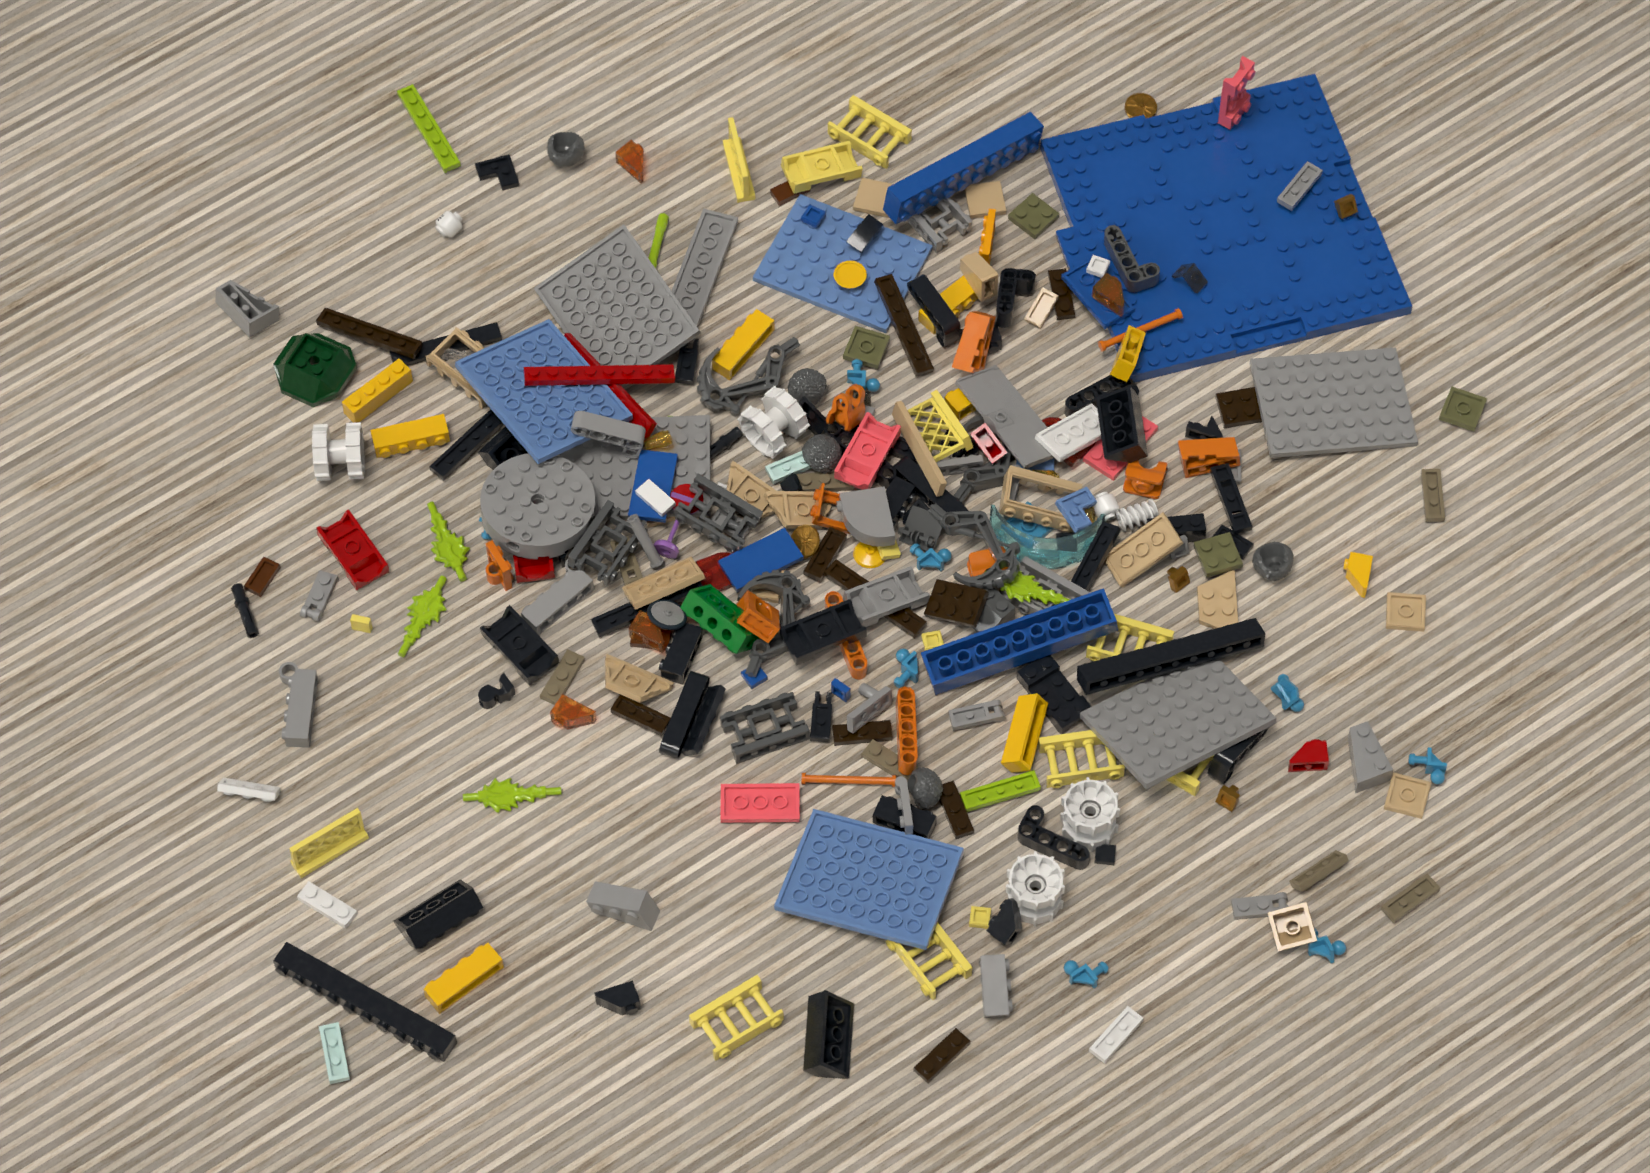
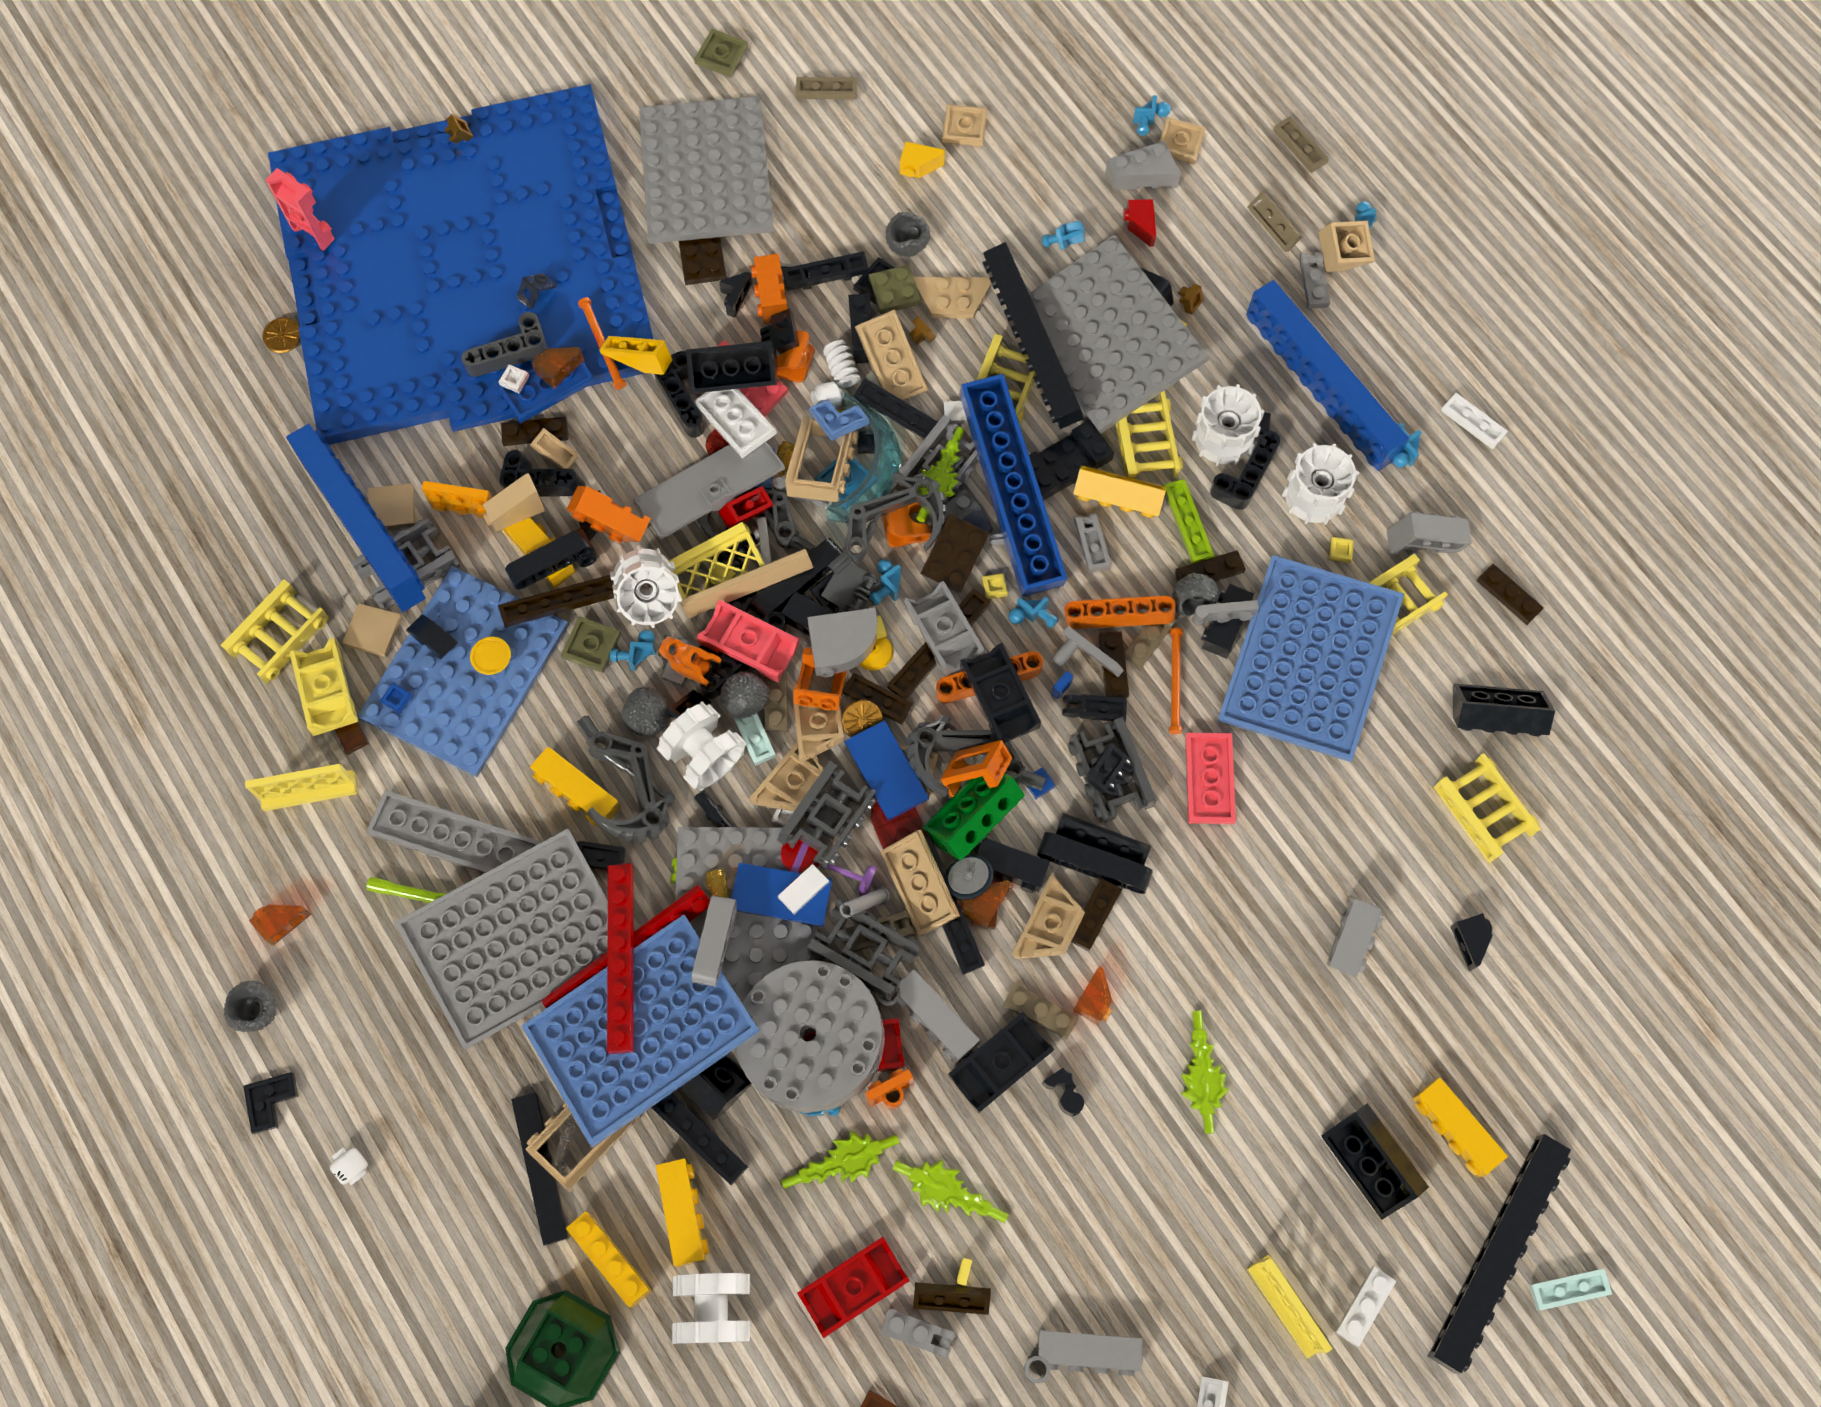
camera: 90 degrees left, 10 degrees up
(342, 615) = (952, 1298): none -> dark brown plate
(369, 333) = (514, 1274): dark brown plate -> none
(428, 128) = (183, 1198): lime plate -> none
(760, 716) = (1108, 769): none -> black plate
(791, 483) = (783, 734): black tile -> none
(908, 371) = (648, 605): none -> white piece
(959, 404) = (678, 543): yellow slope -> none
(1007, 923) = (1358, 519): black slope -> none
(1033, 216) = (421, 455): olive plate -> none
(1150, 900) = (1326, 375): none -> blue brick
(1161, 463) = (781, 331): none -> black hinge
(1299, 186) = (425, 172): light grey plate -> none

